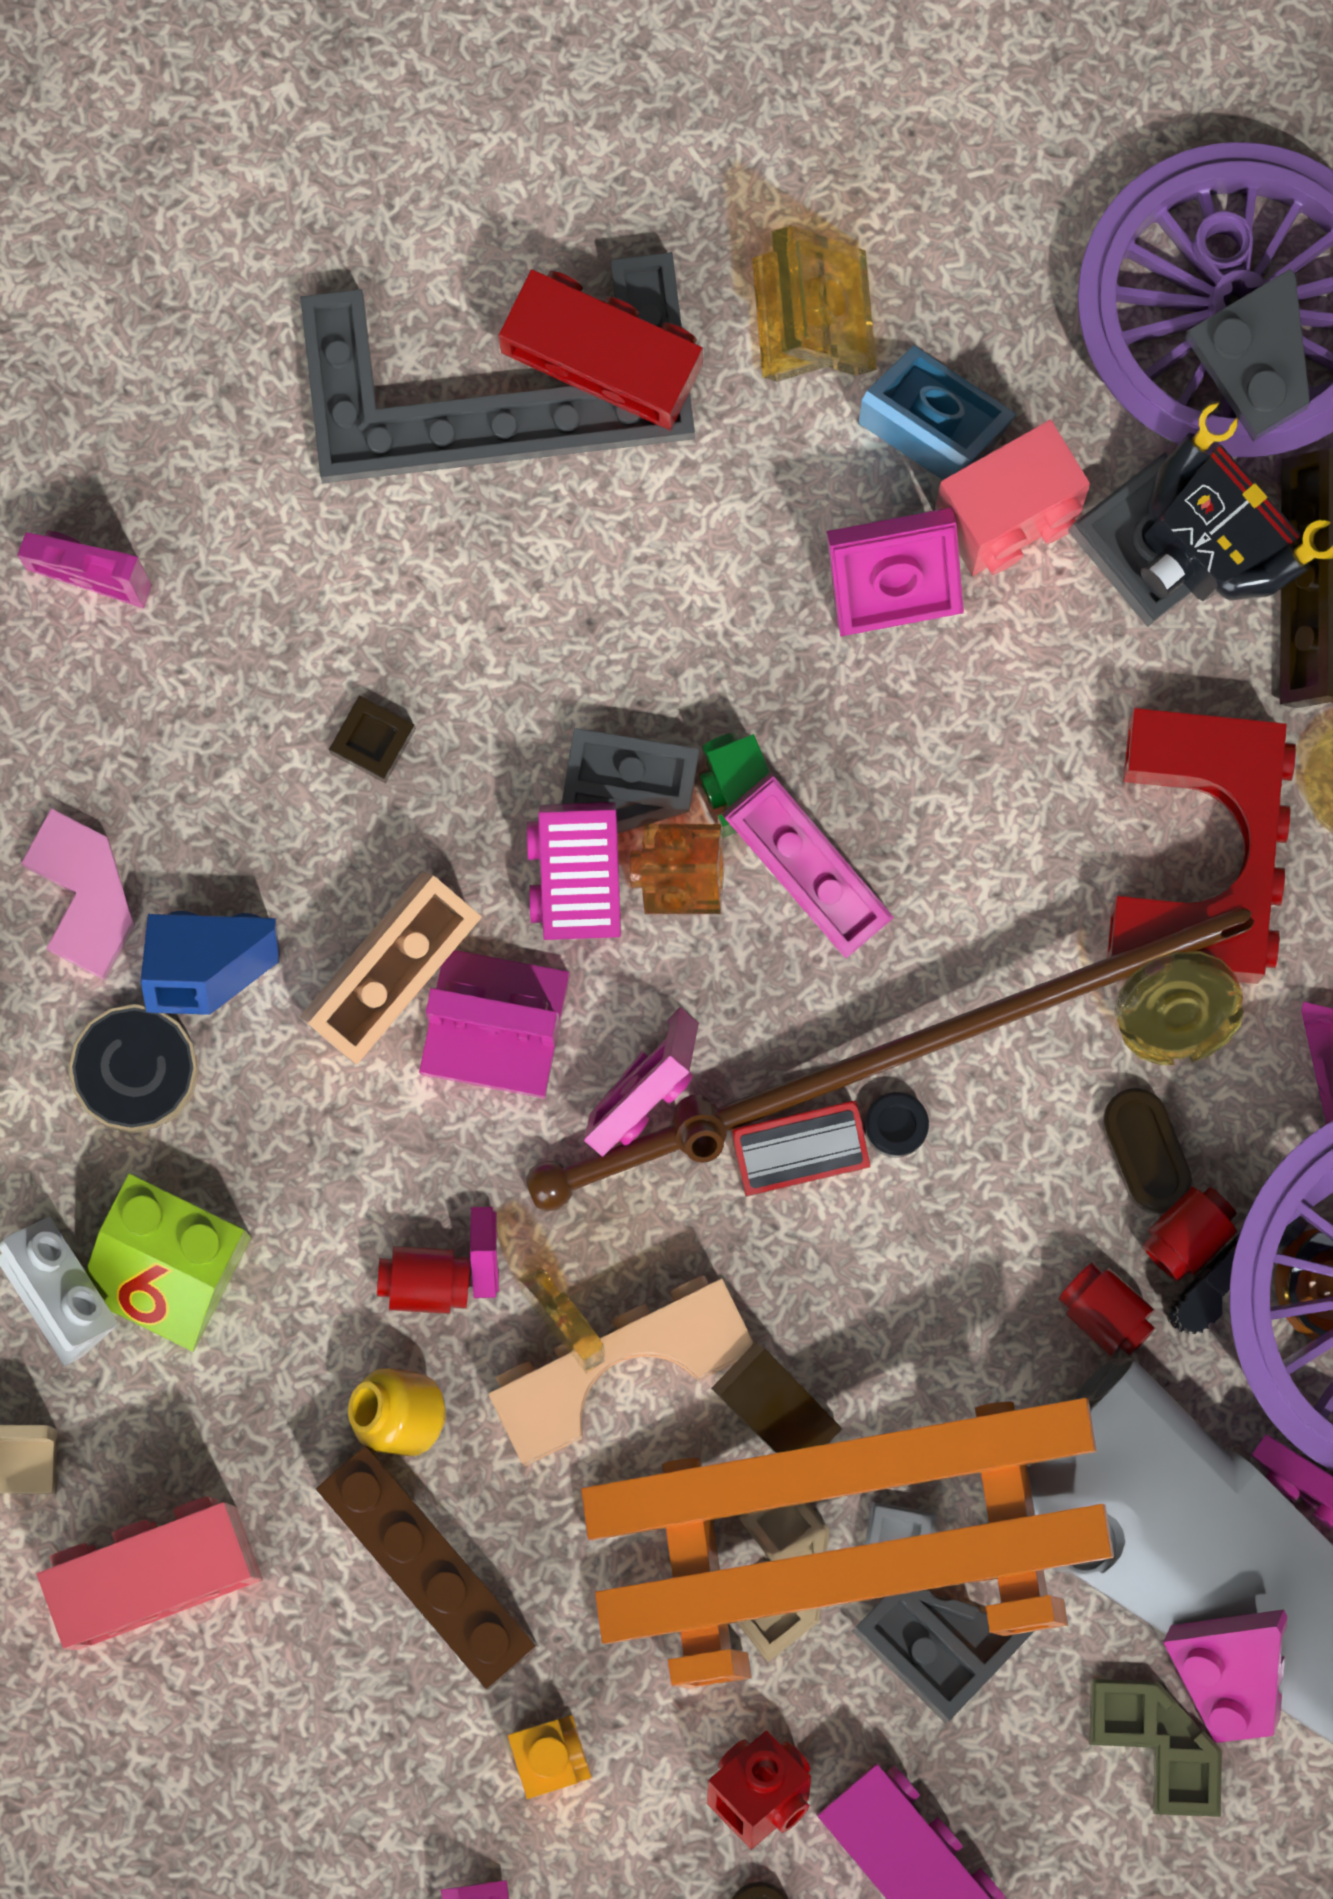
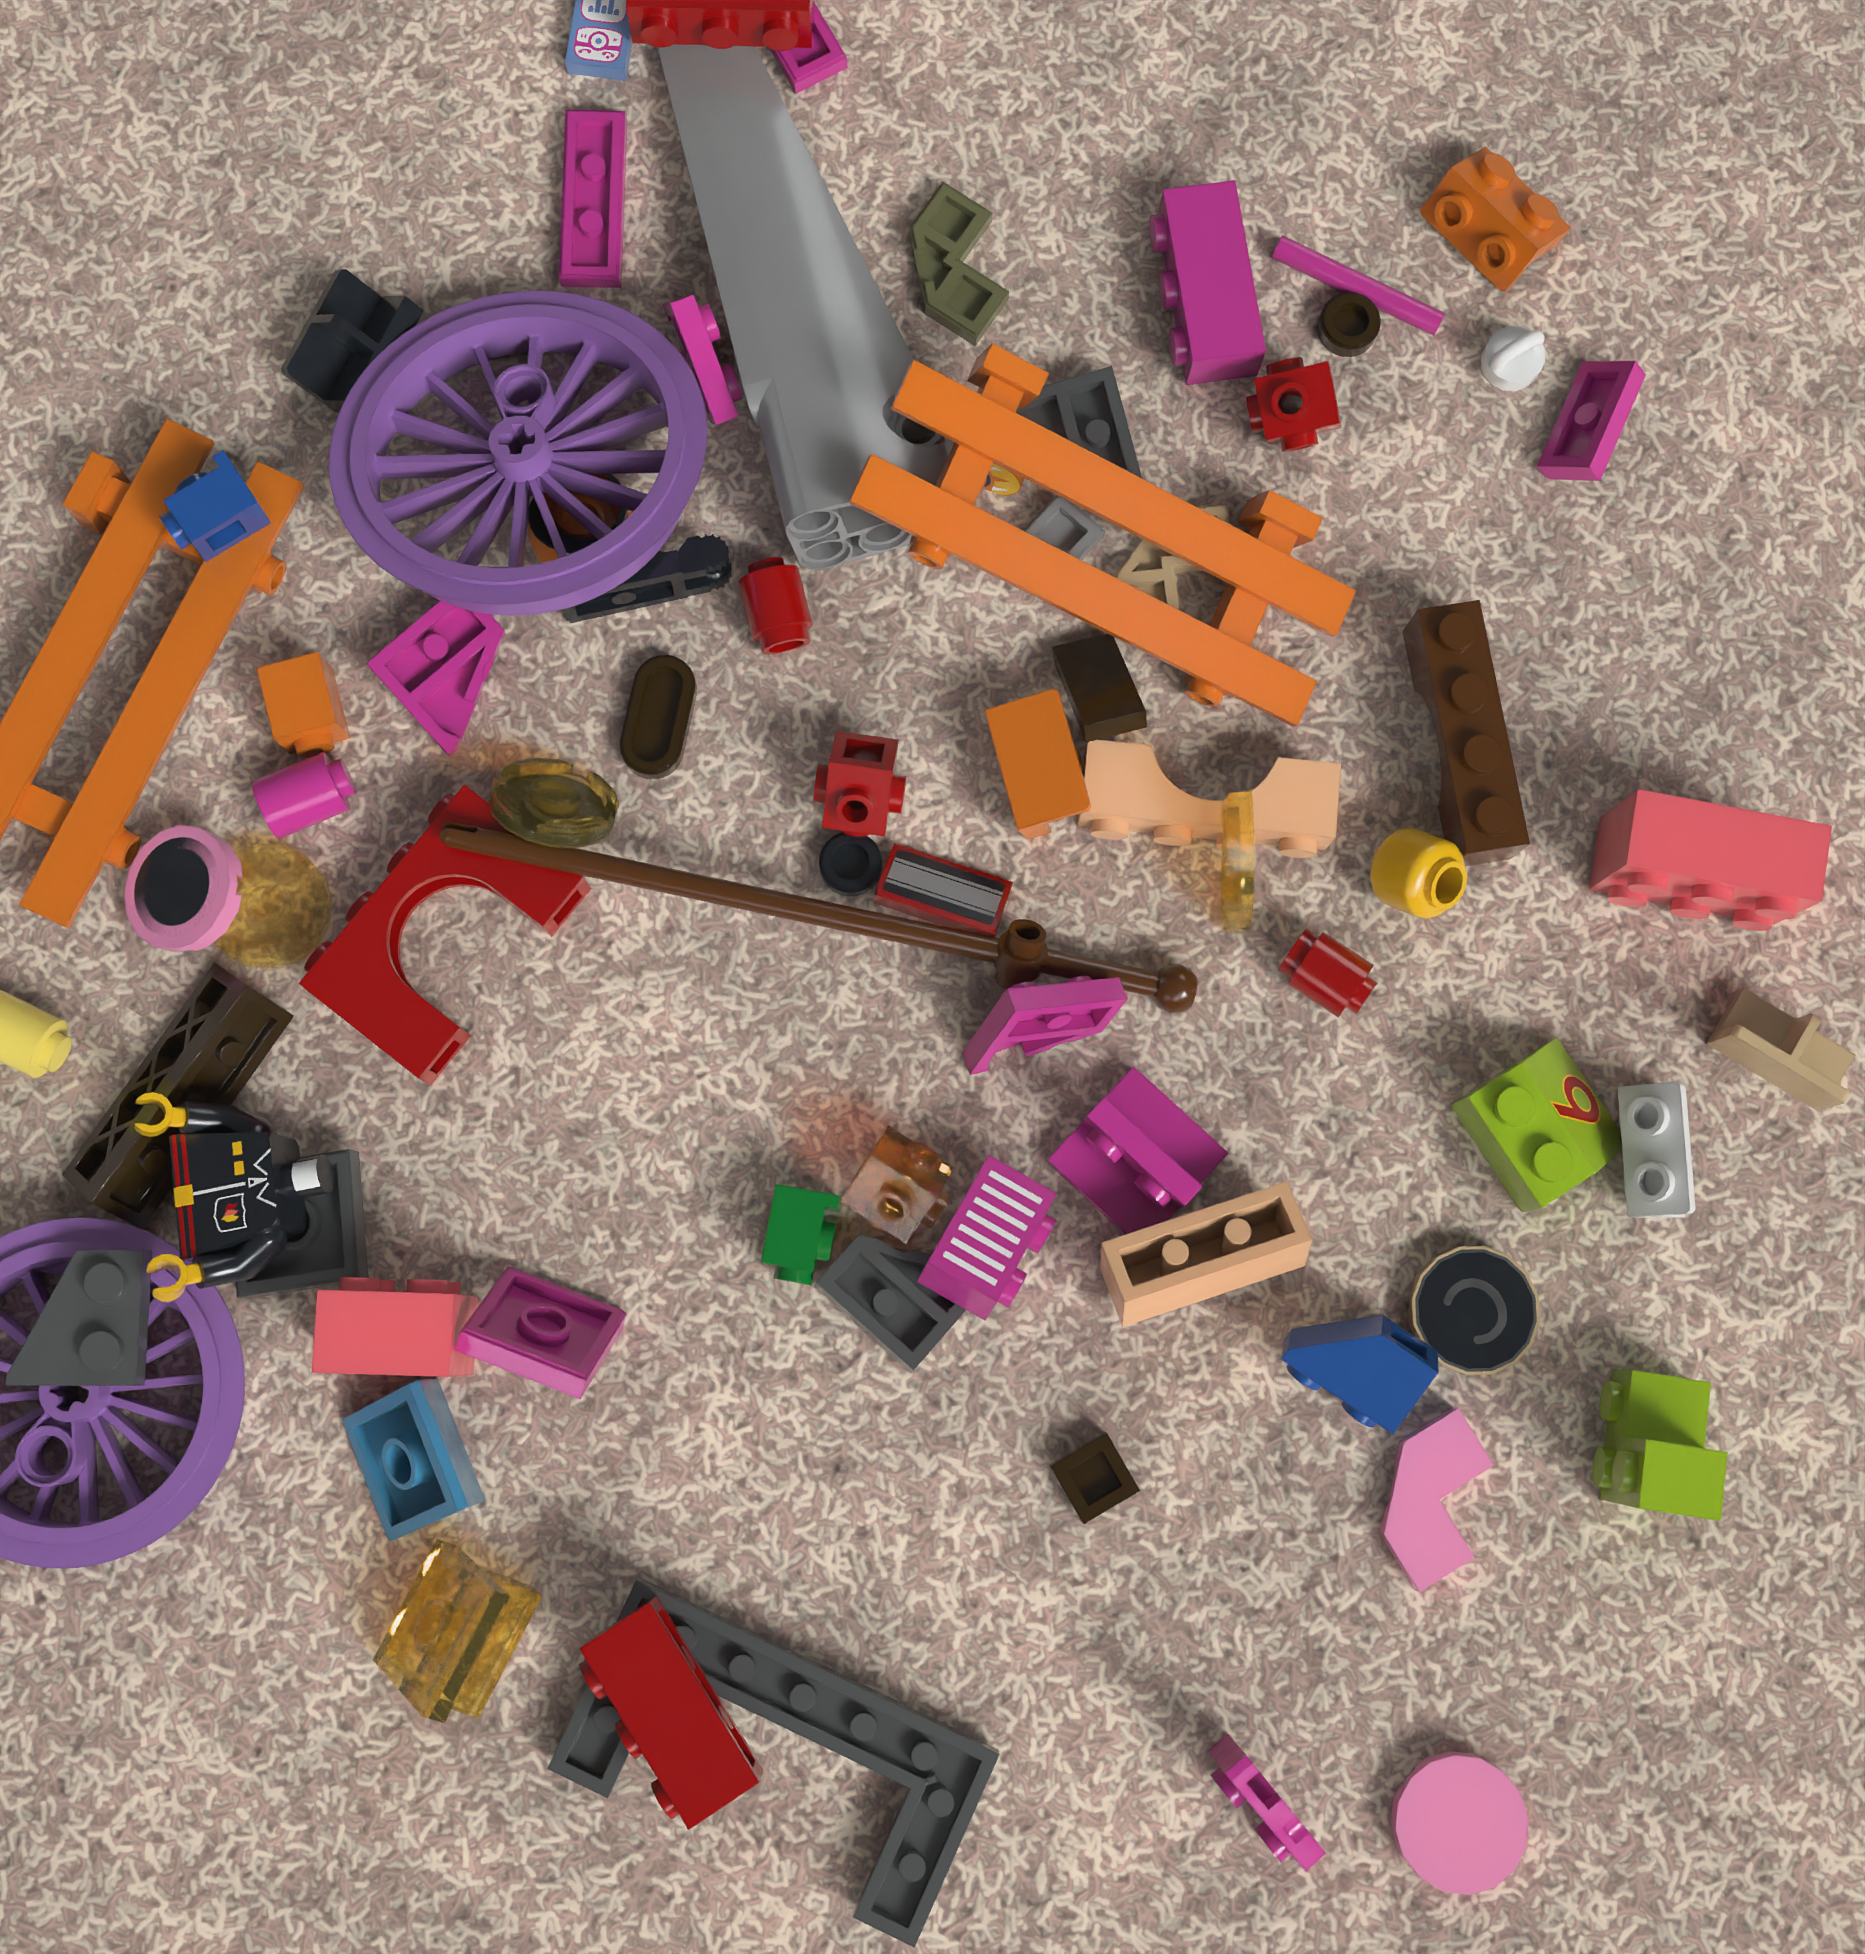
camera: 155 degrees left, 0 degrees up
(484, 1252) = (1262, 968): dark pink tile -> none
(549, 1757) = (1452, 531): light orange brick -> none
(788, 1302) = (1038, 761): none -> orange panel
(807, 865) = (787, 1121): dark pink tile -> none
(929, 1189) = (860, 784): none -> red brick
(1190, 1232) = (667, 625): red brick -> none
(1233, 1671) = (865, 259): dark pink wing -> none

